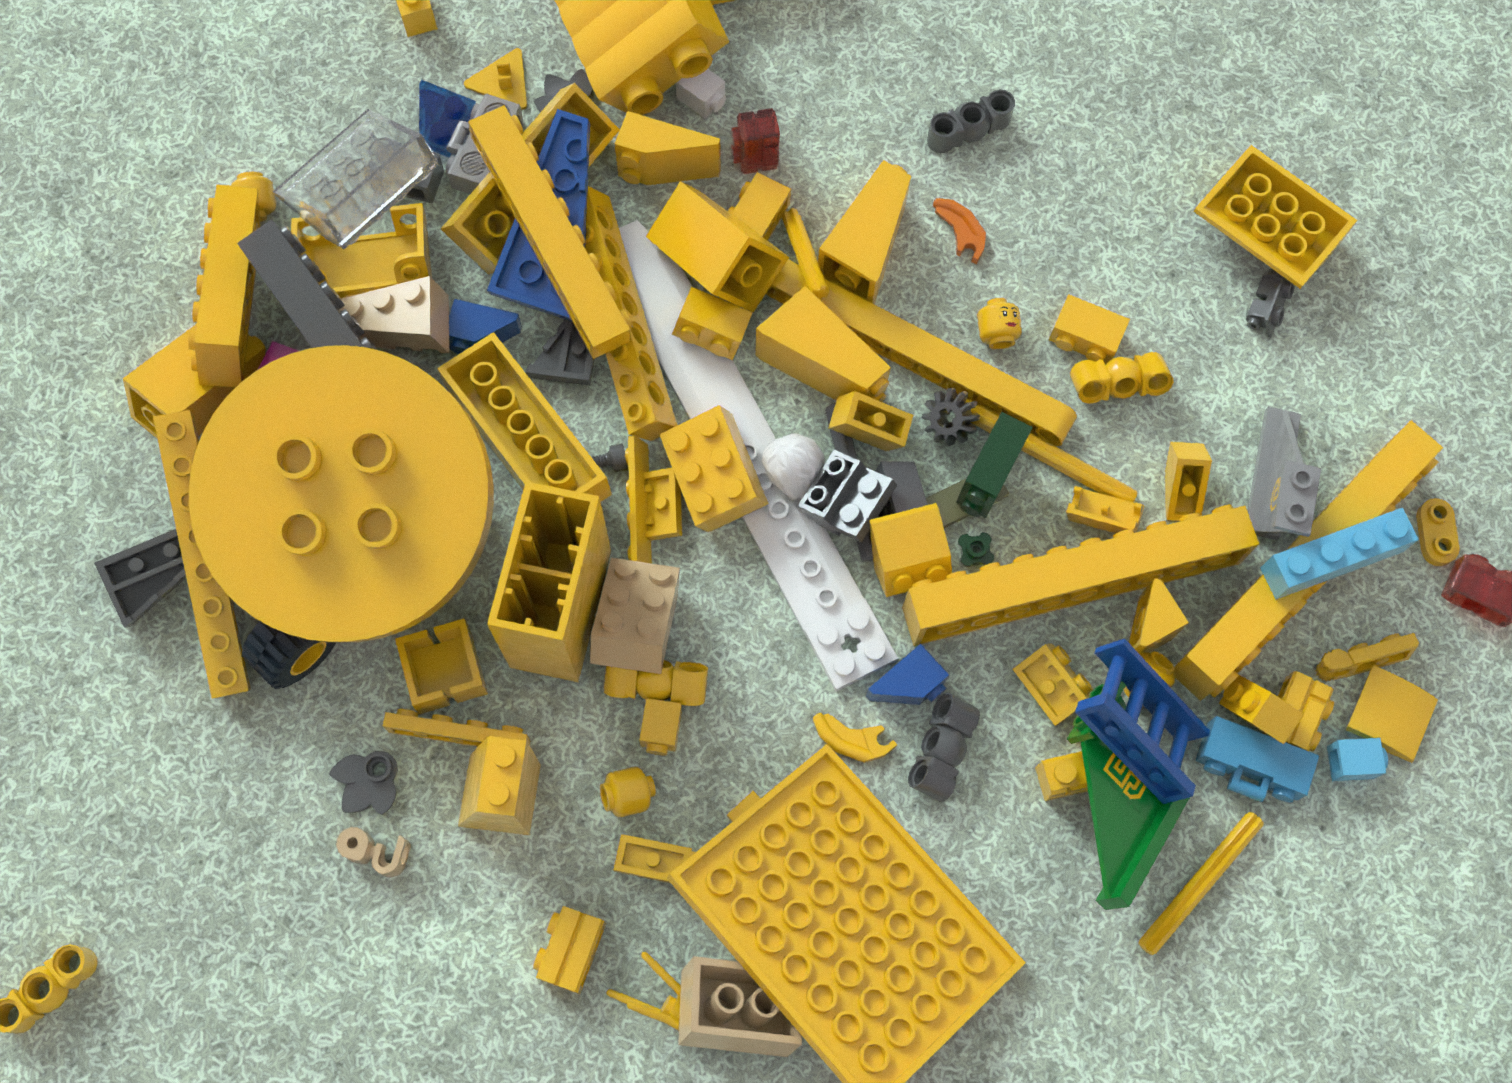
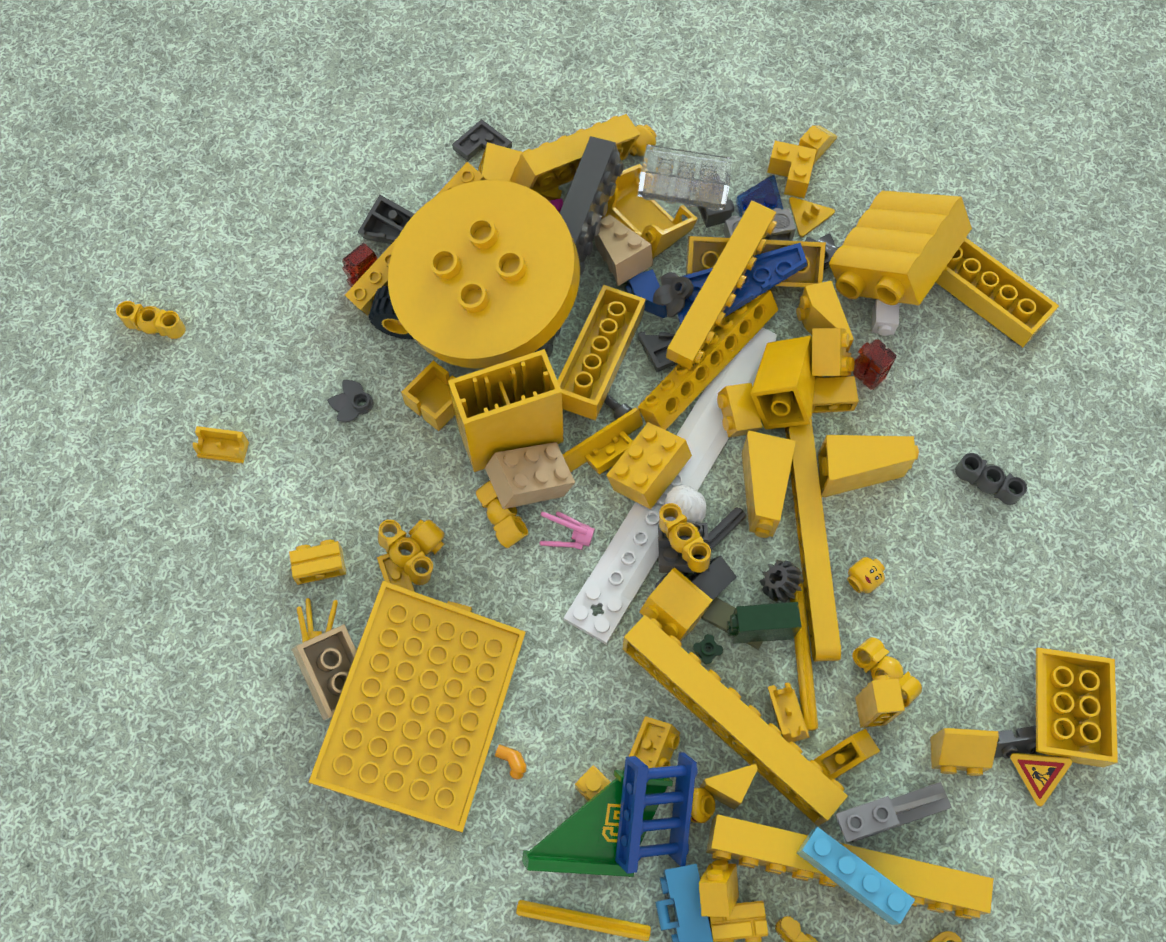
camera: 60 degrees right, 5 degrees down
(89, 385) = (477, 138): none -> dark grey plate
(181, 653) = (358, 263): none -> clear red brick
(312, 990) = (221, 444): none -> yellow hinge
(360, 848) = (312, 421): tan leg -> none
(429, 45) = (795, 163): none -> yellow brick
(443, 729) = (410, 436): yellow plate -> none
(500, 786) = (383, 466): yellow slope -> none
(511, 300) = (670, 293): none -> dark grey plate
(620, 837) = (408, 562): none -> yellow piece
(660, 726) = (476, 532): yellow brick -> none
(717, 175) = (830, 353): none -> yellow brick
(743, 603) = (582, 532): none -> bright pink plant
(805, 253) = (818, 436): yellow axle -> none
(830, 479) = (689, 547): none -> yellow piece
(853, 743) = (537, 648): yellow piece -> none
(870, 421) = (742, 534): yellow brick -> none
(911, 680) = (596, 657): blue slope -> none
(943, 747) = (566, 702): dark grey piece -> none
(966, 227) = (918, 520): orange piece -> none
(973, 850) = (515, 760): none -> light orange arm
(1088, 329) = (904, 633): yellow brick -> none
(1158, 405) = (879, 702): none -> yellow brick
(1254, 360) = (963, 750): none -> yellow slope
(1318, 302) = (1040, 773): none -> piece

